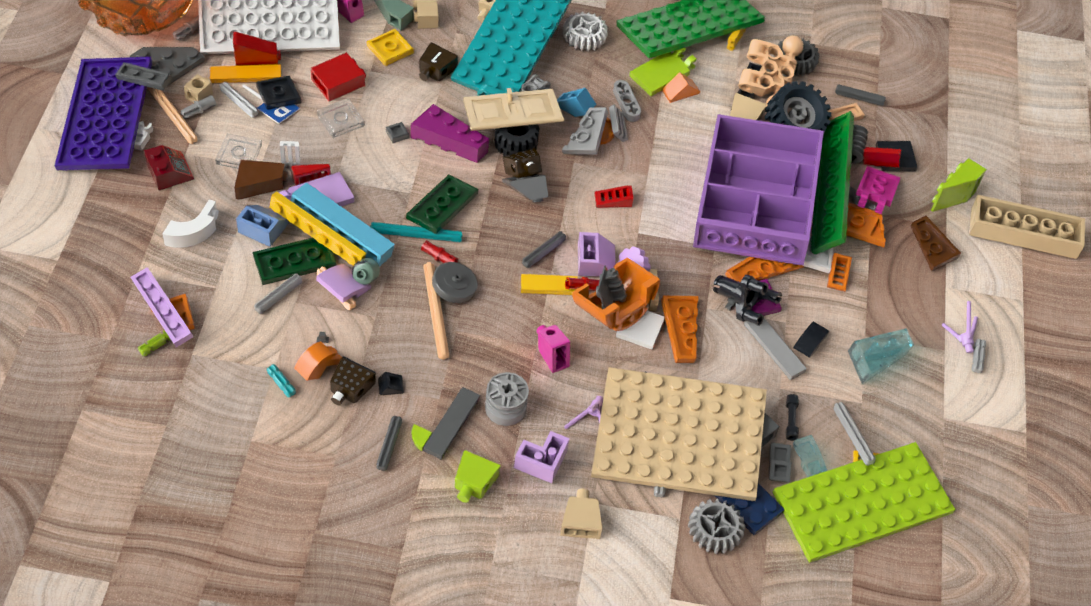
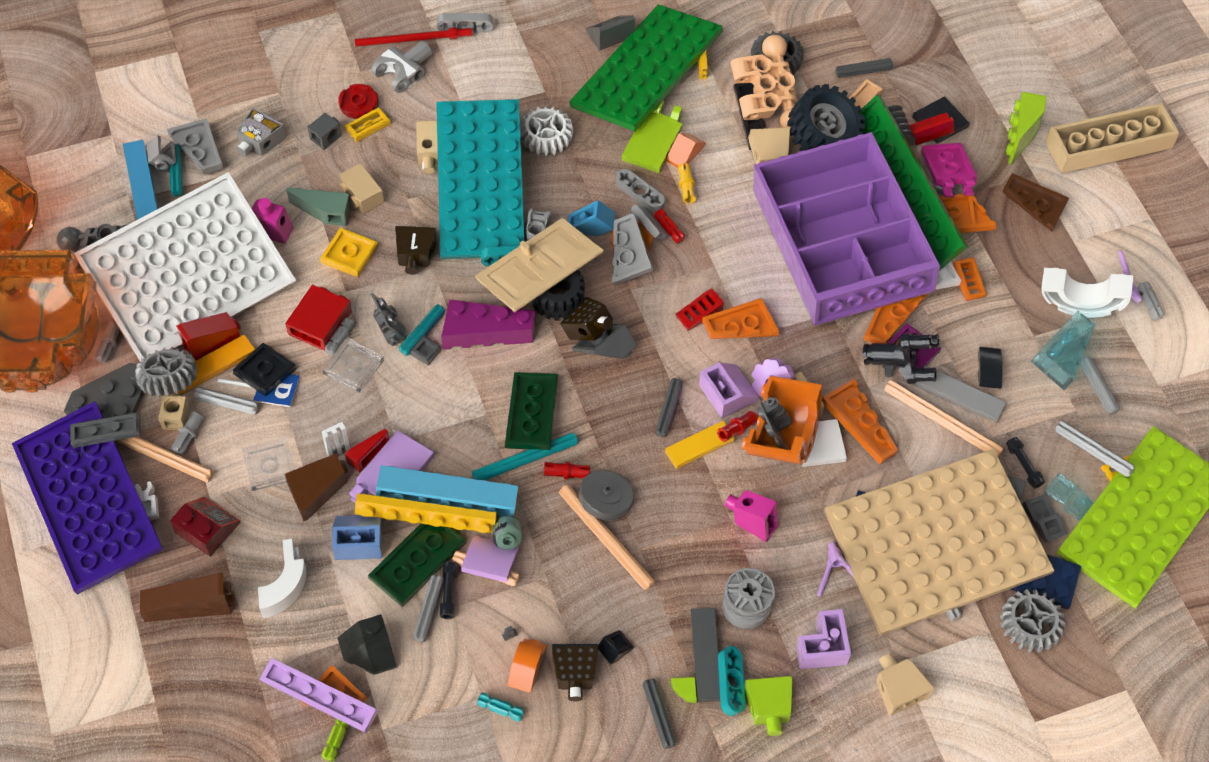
camera: 25 degrees left, 5 degrees up
(122, 205) = (188, 599): none -> reddish brown slope
(209, 60) = (166, 372): none -> light grey gear
(221, 295) = (368, 646): none -> pearl dark grey slope
(290, 300) = (447, 608): none -> black bar
(348, 93) = (339, 336): none -> light grey axle
(384, 99) = (387, 321): none -> flat silver hinge
(403, 117) = (422, 329): none -> teal axle
(449, 452) = (726, 689): none -> teal beam
(632, 133) = (669, 226): none -> red axle
(638, 218) = (741, 321): none -> orange wing
(665, 111) = (686, 183): none -> yellow pin
(749, 357) = (942, 418): none -> light nougat axle
(892, 394) = (1099, 385): none -> light grey axle
(920, 326) = (1089, 299): none -> white brick

